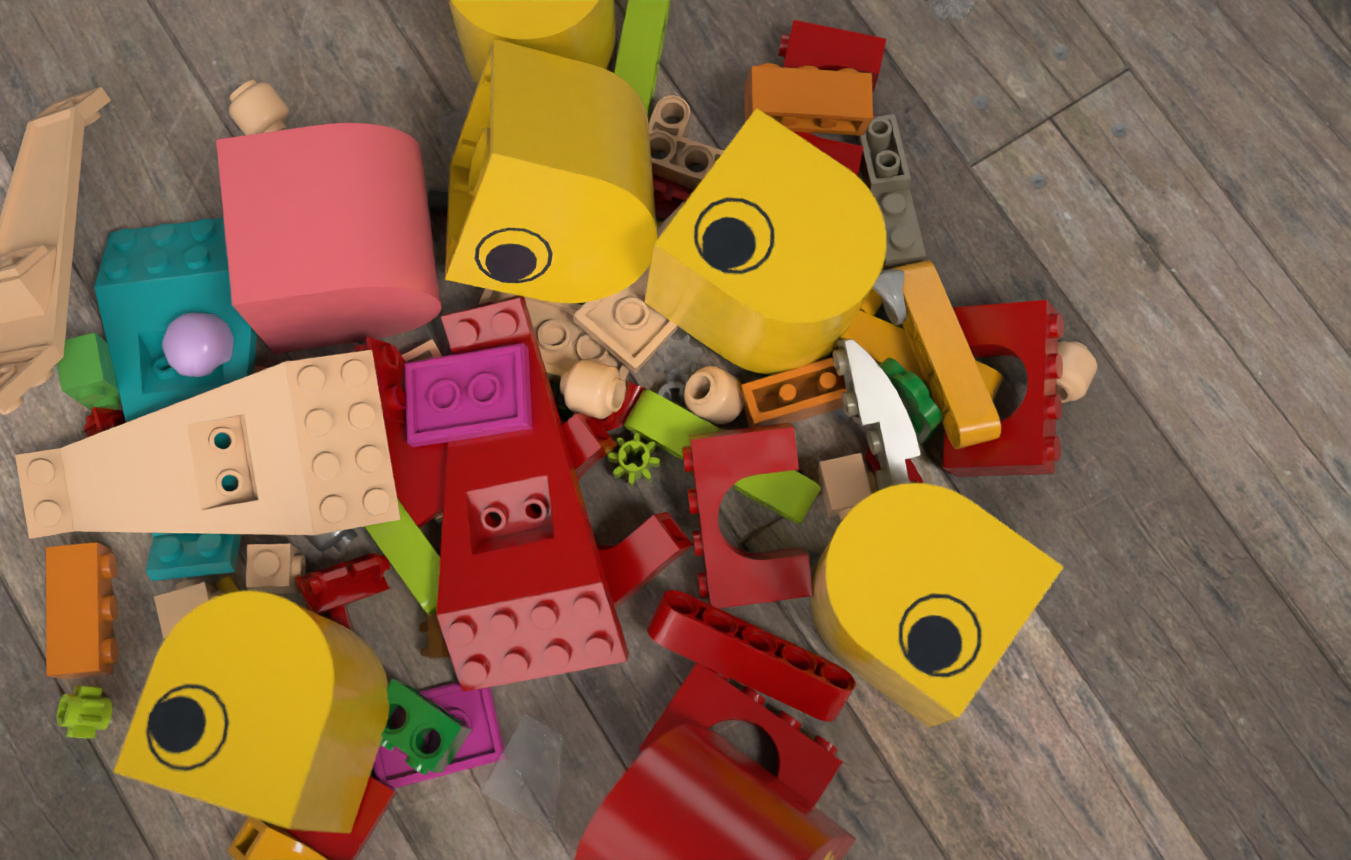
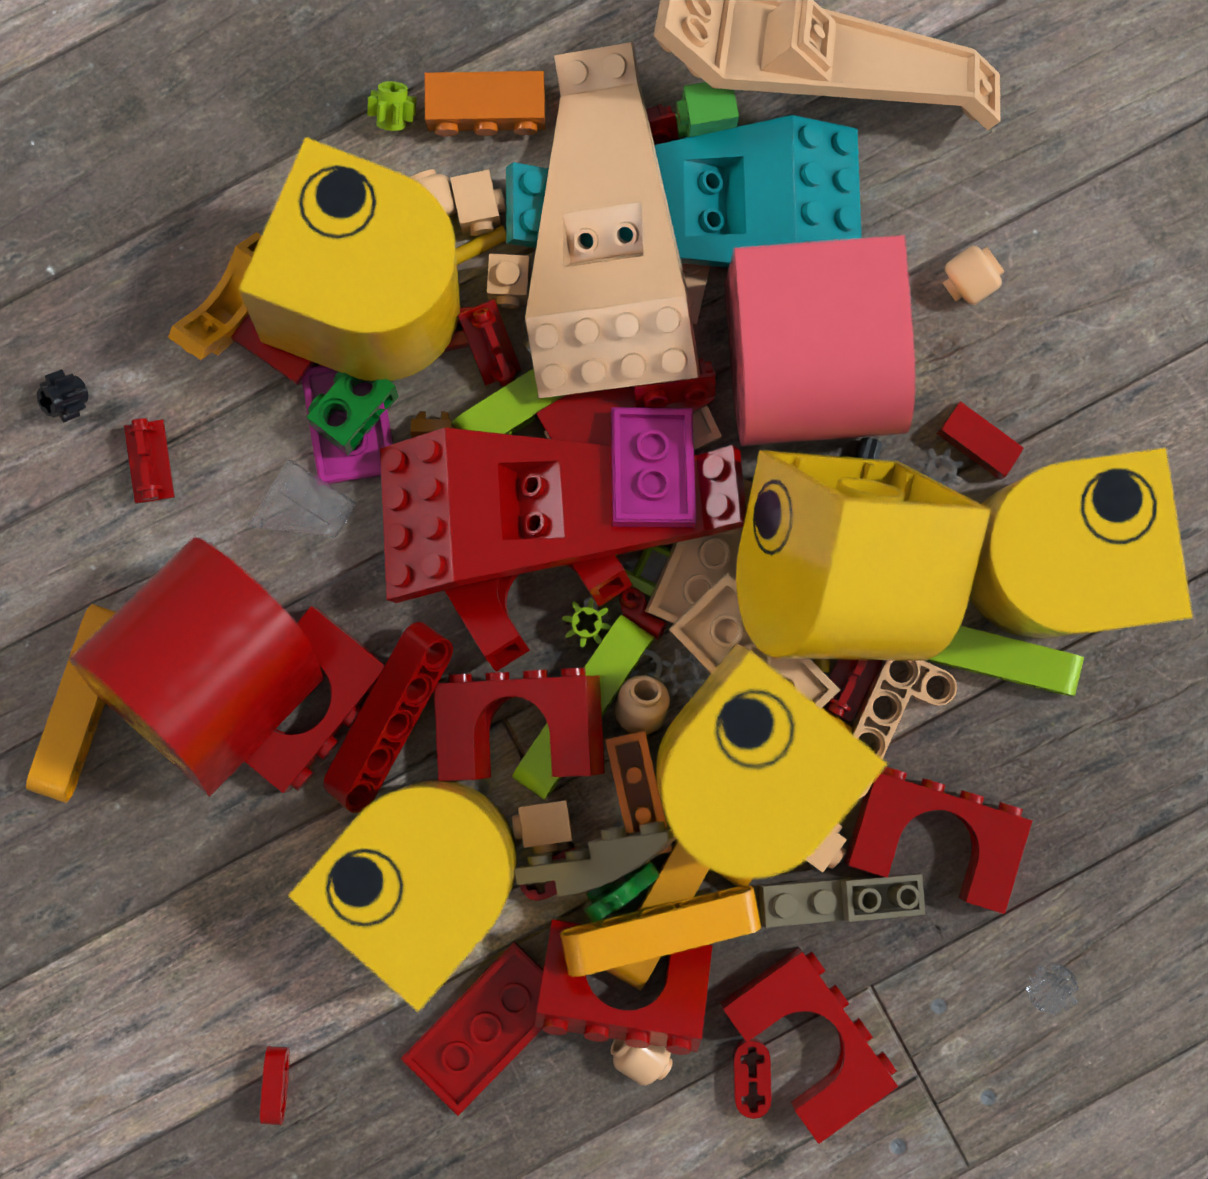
camera: 95 degrees right, 10 degrees up
(197, 344) = (724, 213): lavender hair -> none
(426, 97) = (980, 441): none -> red slope
(593, 389) = (651, 587): light nougat head -> none
(811, 98) = (937, 825): orange brick -> none
(889, 287) = (724, 886): light grey piece -> none
(1055, 165) = (859, 1074): none -> red arch
(1073, 258) = (761, 1077): none -> red beam
(1093, 548) = (480, 1030): none -> red tile
(1151, 746) = (274, 1085): none -> red beam

